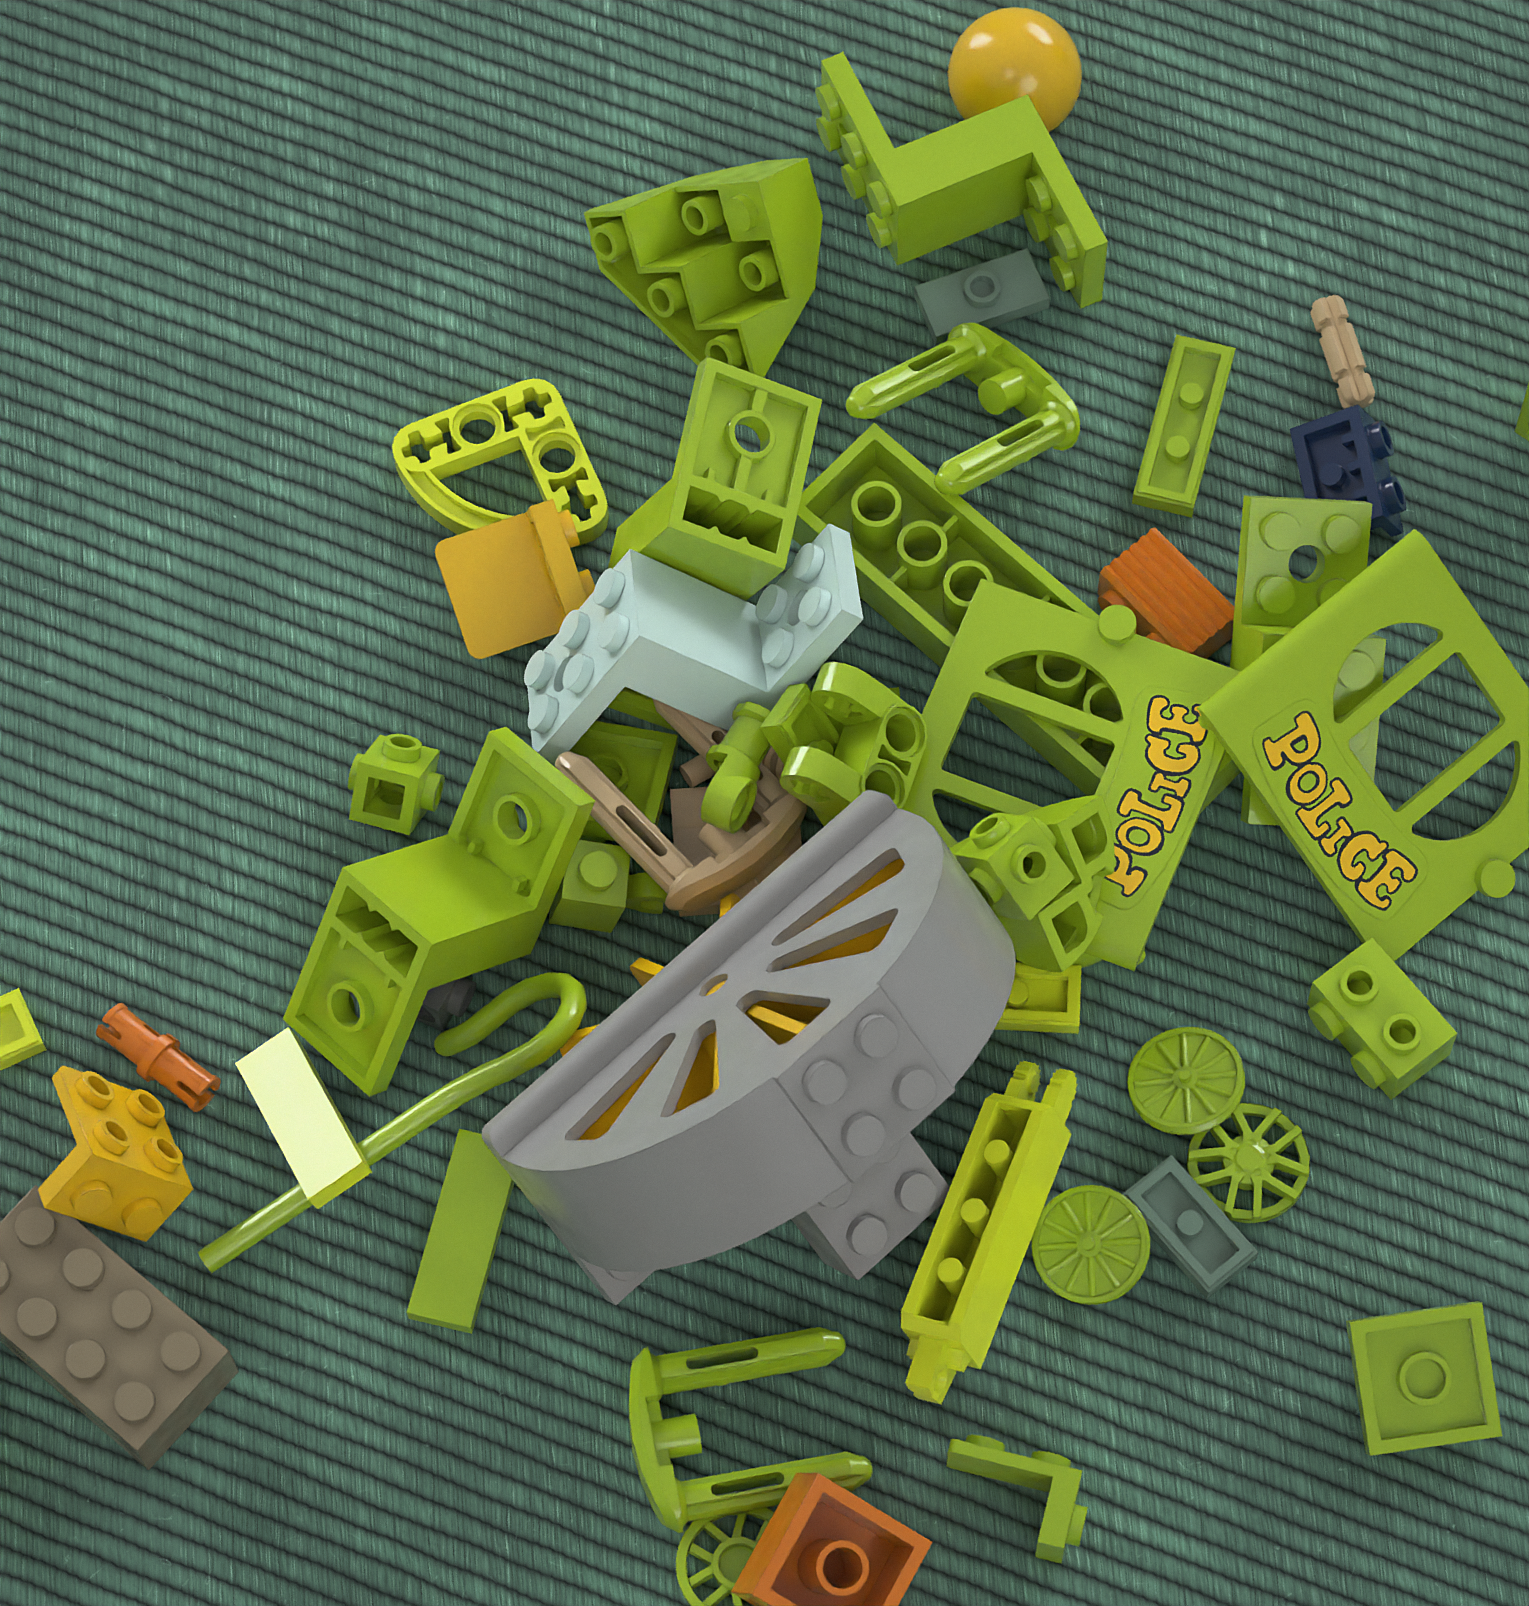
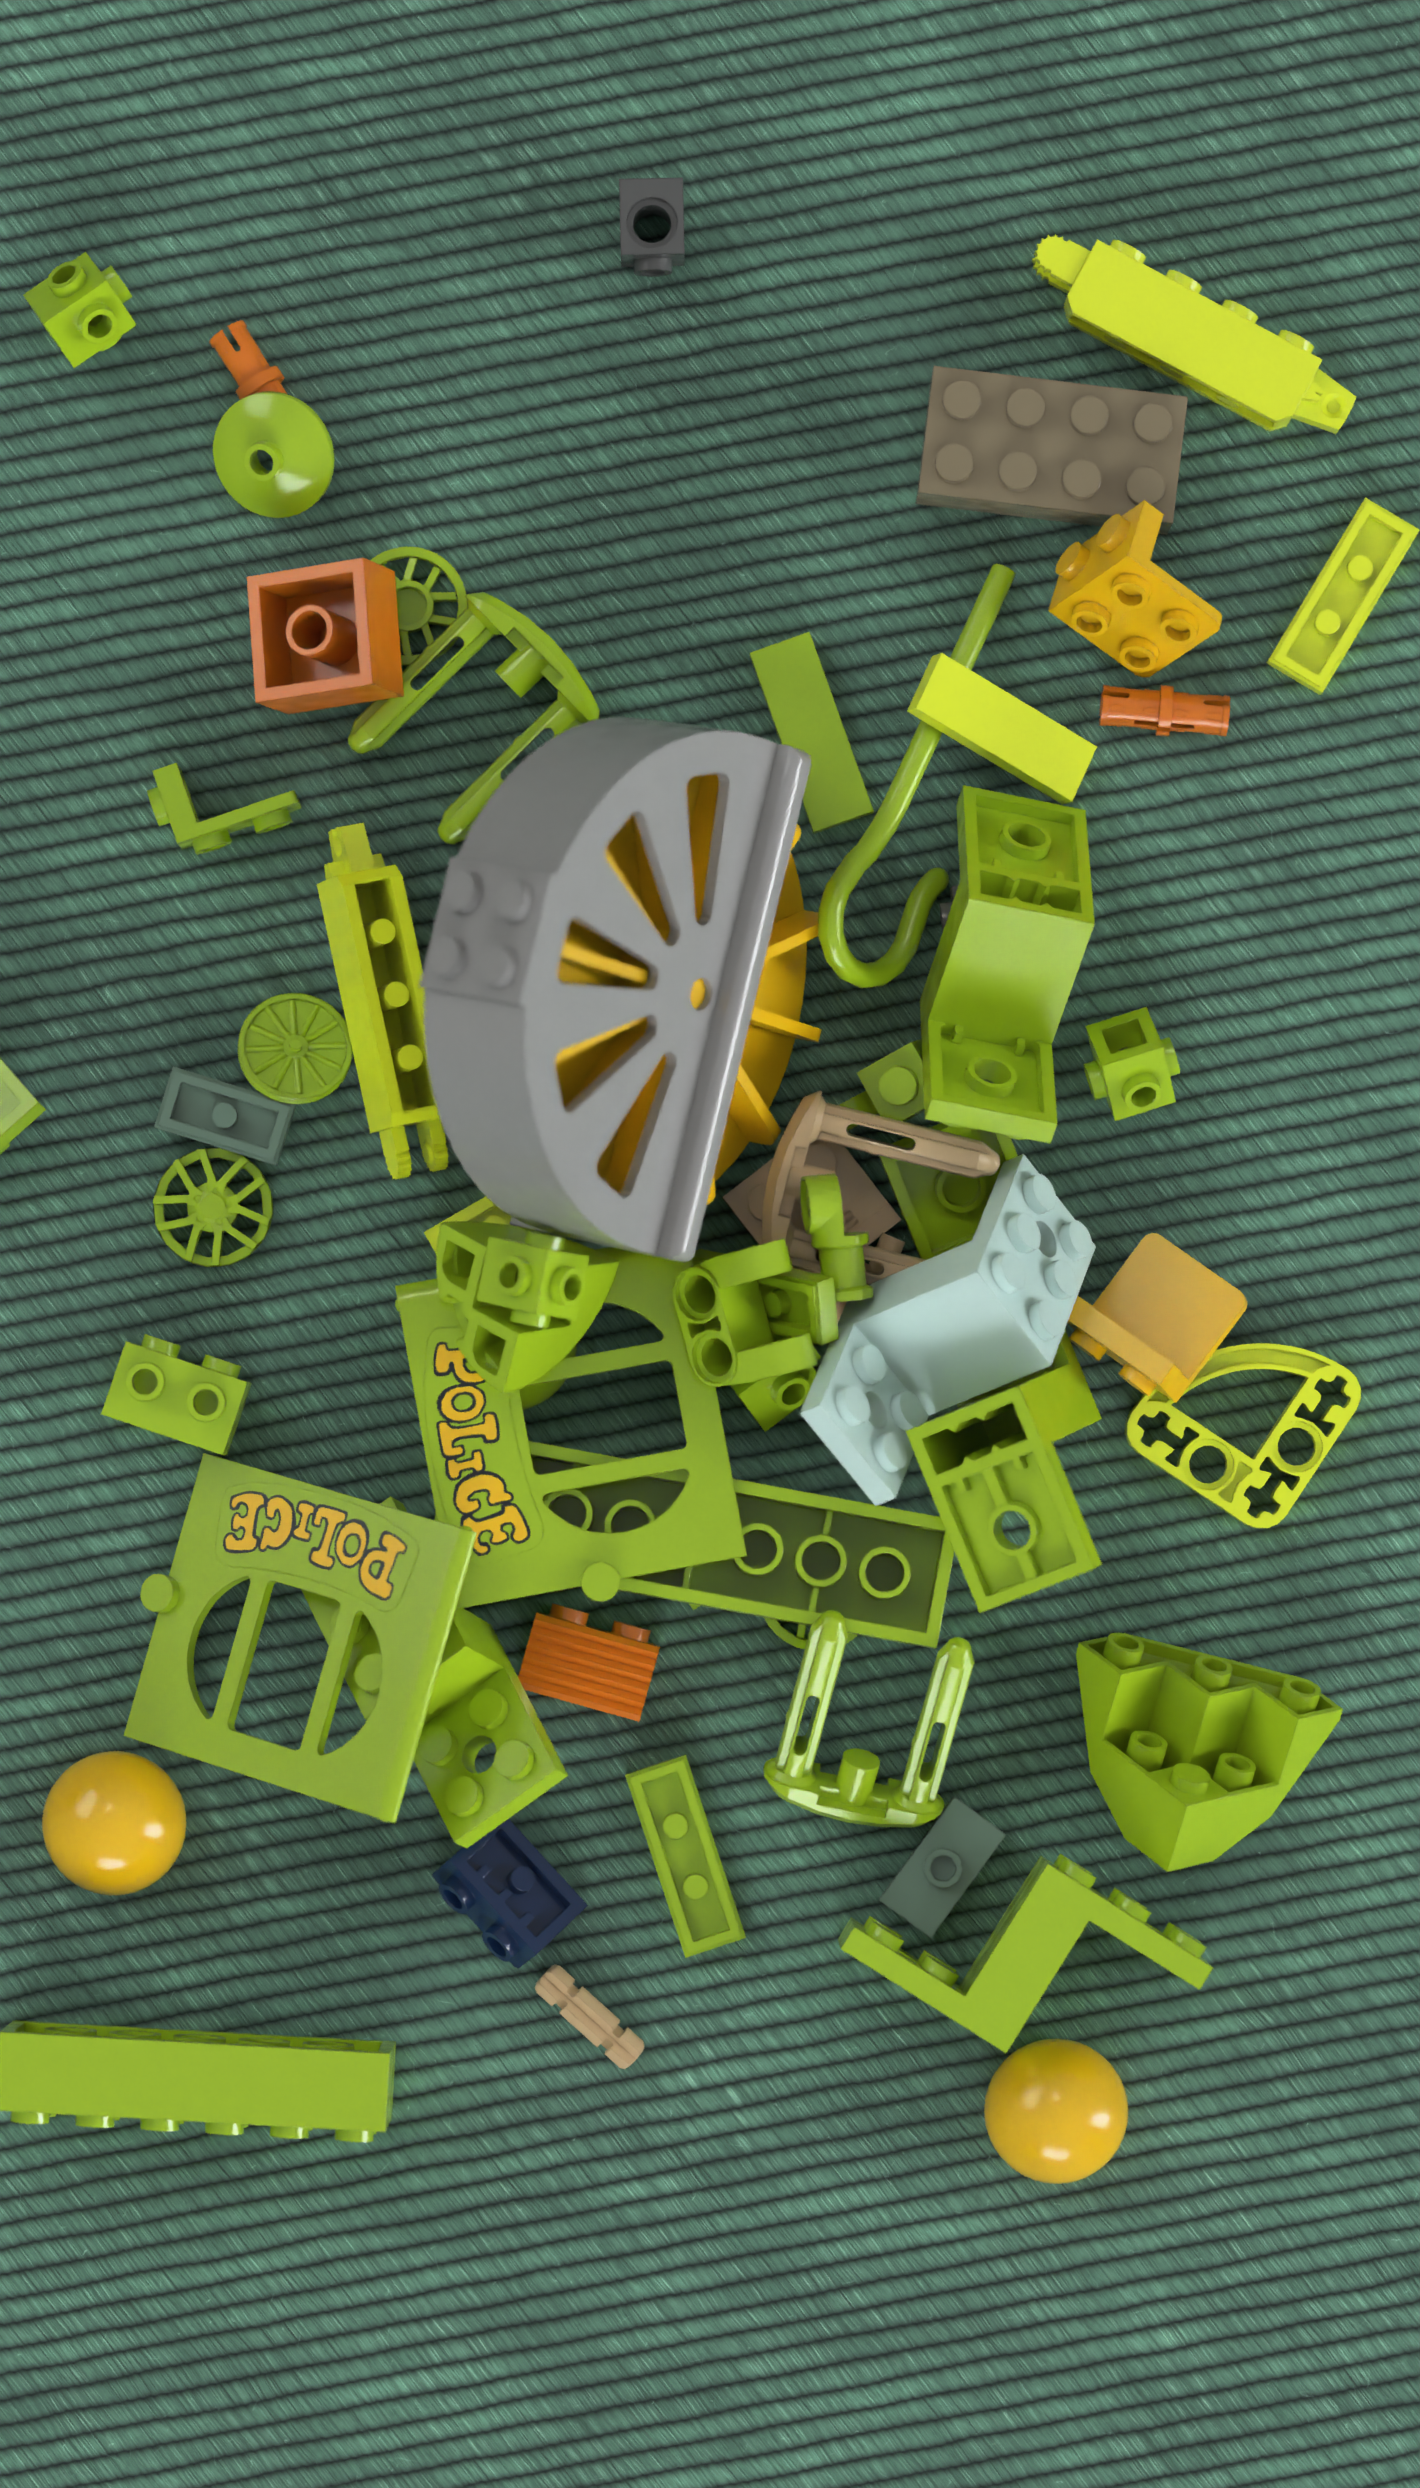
camera: 140 degrees right, 20 degrees up
(1186, 1080) = (306, 1242): lime wheel -> none

